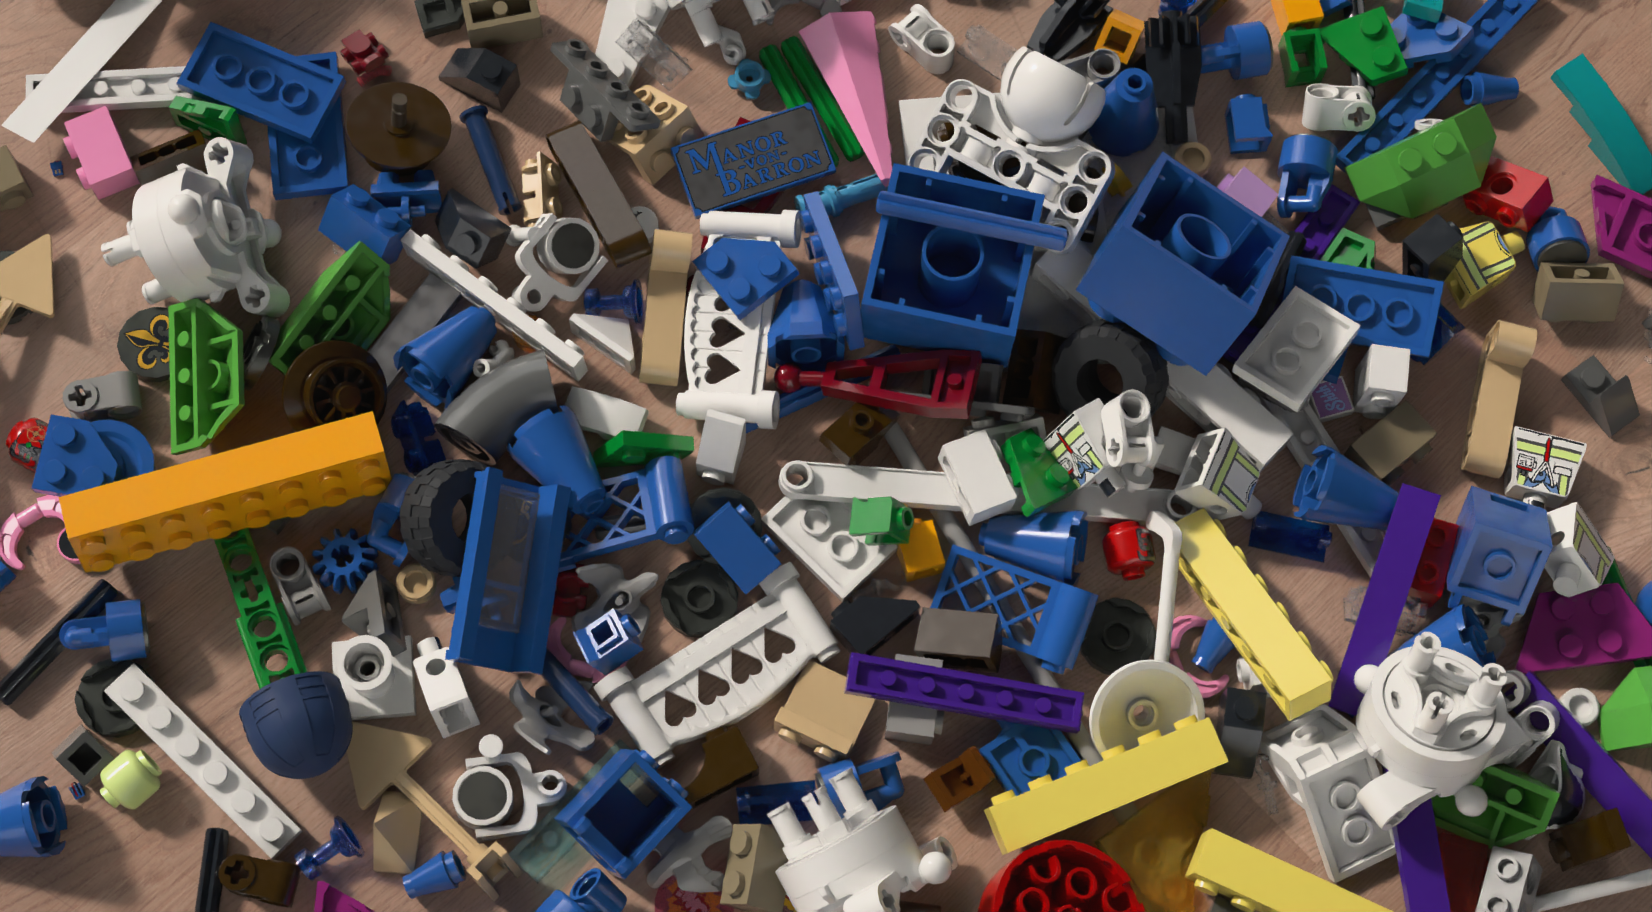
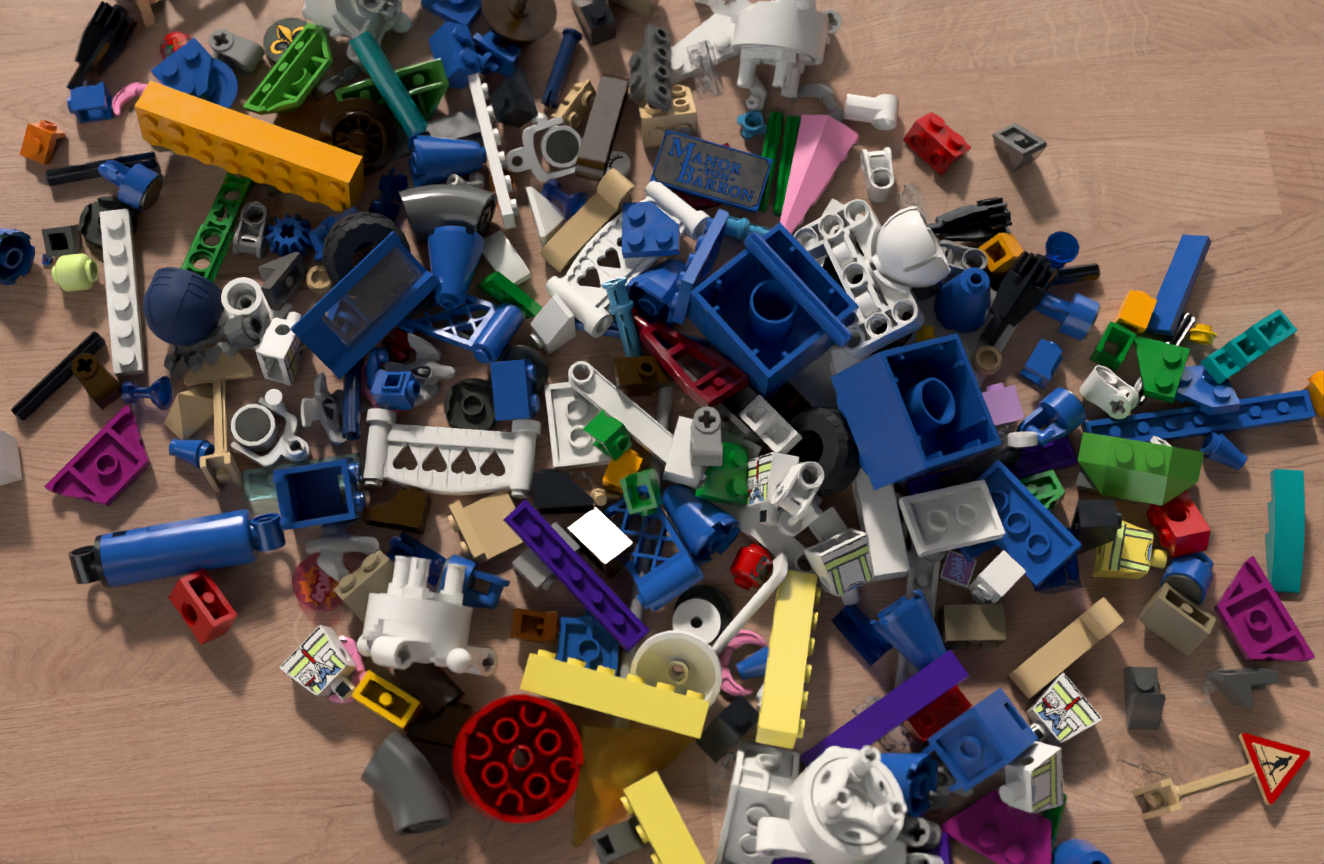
camera: 40 degrees right, 0 degrees up
(328, 310) = (388, 84): none -> teal brick
(391, 704) = (240, 332): none -> dark grey sword
(561, 636) = (375, 357): none -> blue arm
(782, 374) = (621, 308): none -> dark azure pin
(919, 591) = (601, 496): none -> tan animal
(977, 567) = (631, 493): none -> green window
(996, 453) = (706, 442): none -> light grey piece
(1040, 388) = (770, 426): none -> white slope
(1119, 632) = (700, 610): none -> white piece
(1295, 217) = (1022, 439): none -> white tile

